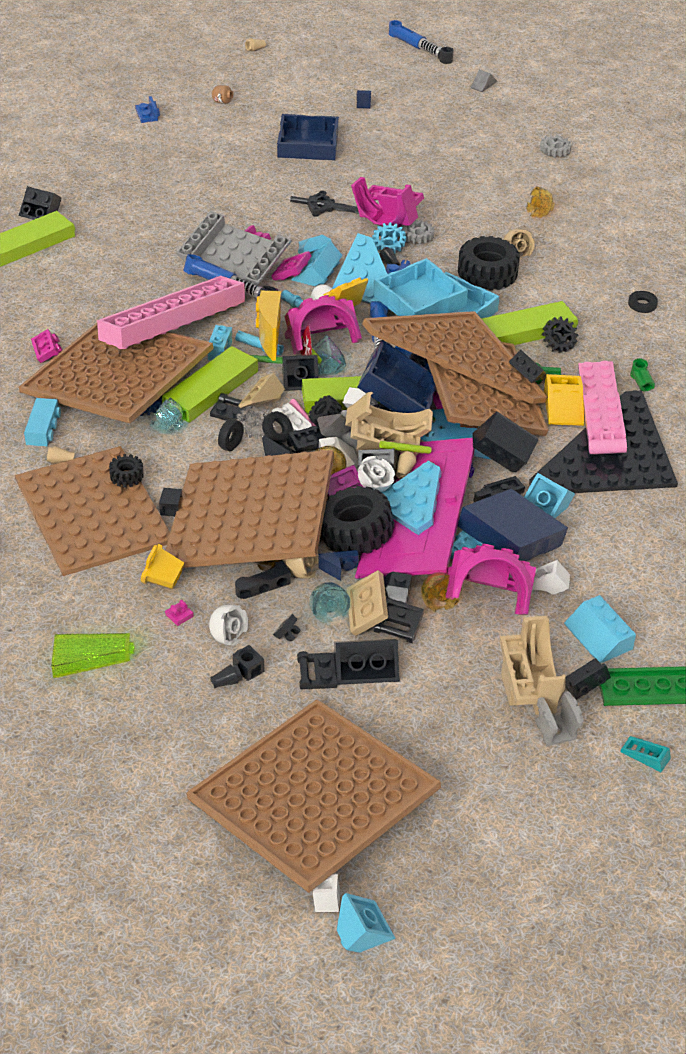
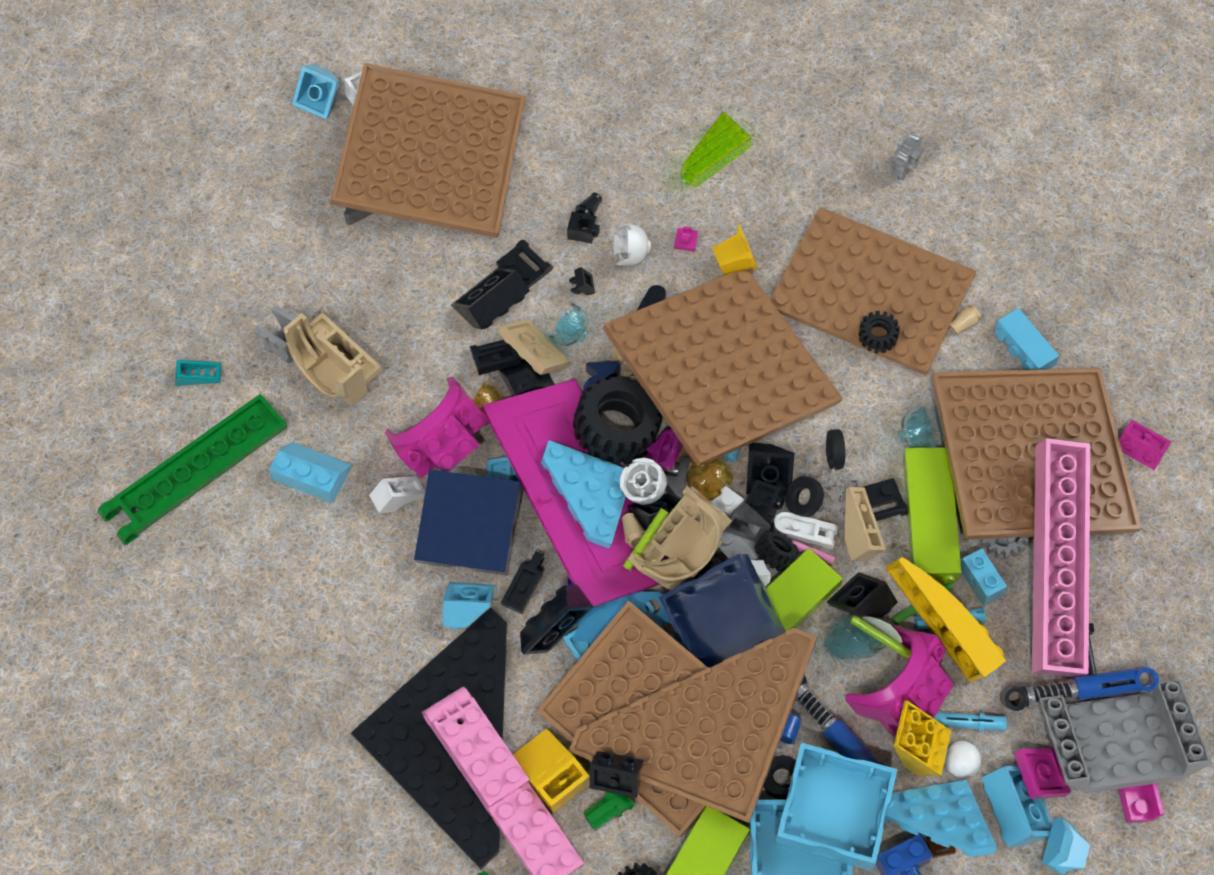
camera: 145 degrees right, 20 degrees up
(169, 501) = (811, 337): black brick -> none
(587, 678) = (288, 403): black bracket -> none

